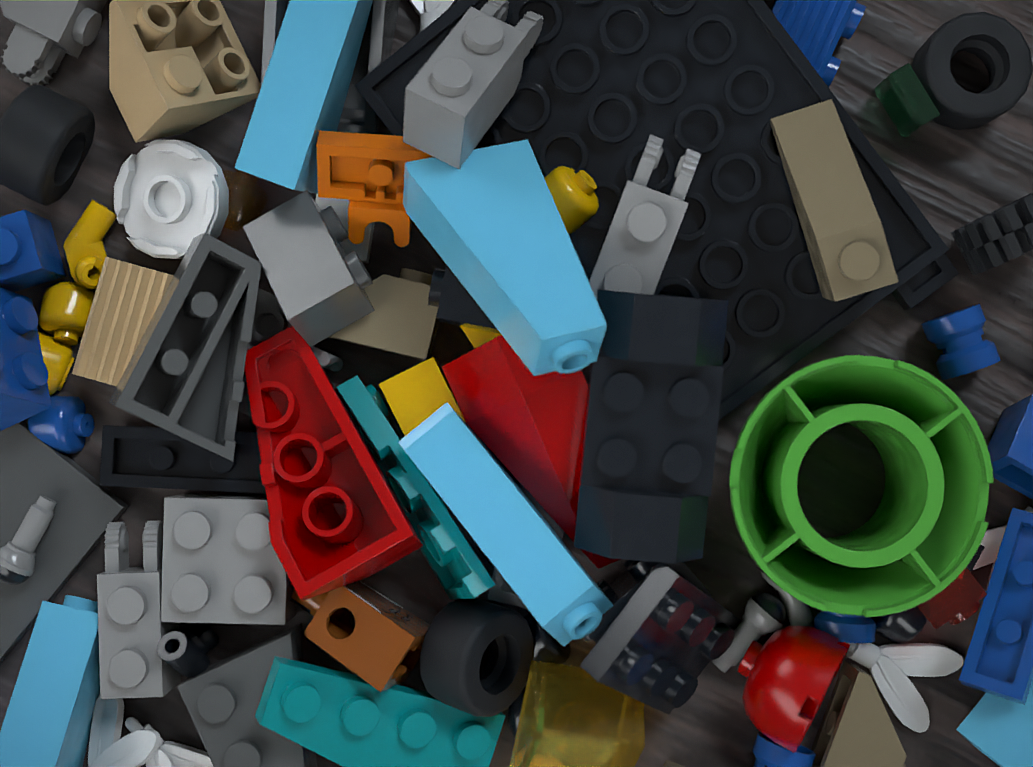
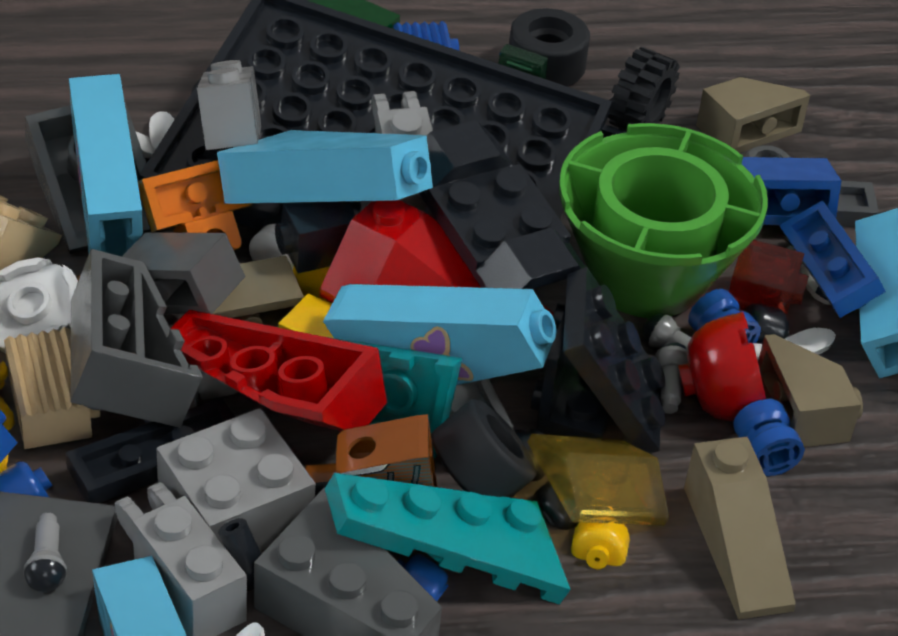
camera: 35 degrees left, 45 degrees down
(833, 203) = (525, 97): dark tan slope -> none

